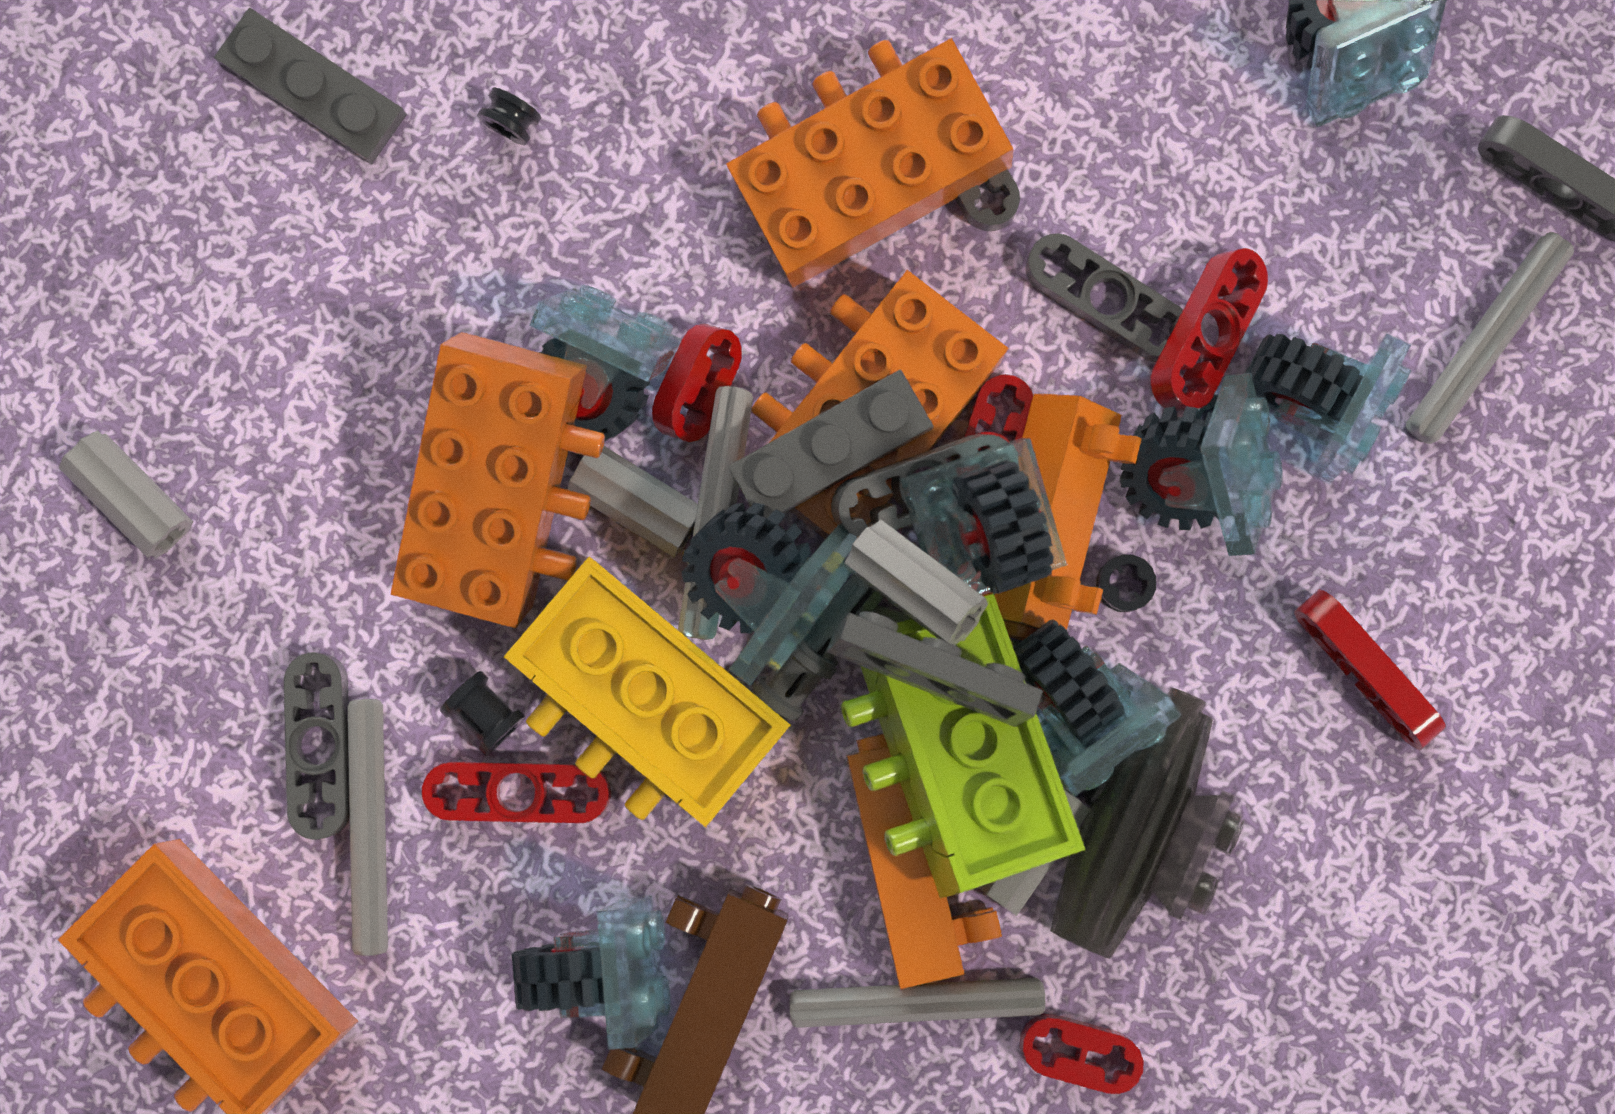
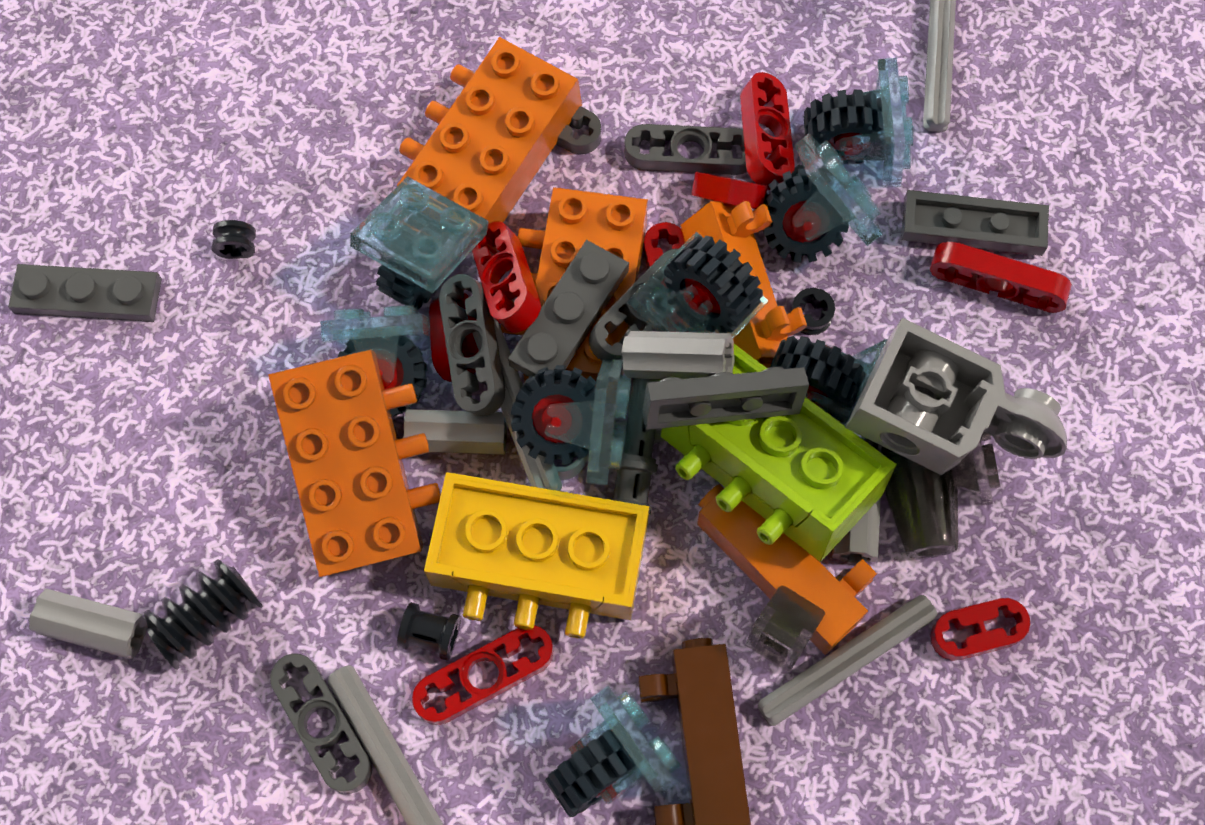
camera: 25 degrees left, 15 degrees down
(248, 555) = (199, 612): none -> black piece
(691, 391) = (486, 361): none -> dark grey beam
(710, 252) = (417, 240): none -> clear light blue plate
(792, 379) = (519, 283): none -> red beam
(866, 940) = (784, 628): none -> clear smoke slope
(1115, 385) = (728, 190): none -> red beam
(1180, 820) = (939, 399): none -> light grey brick
(1385, 584) = (975, 222): none -> dark grey plate

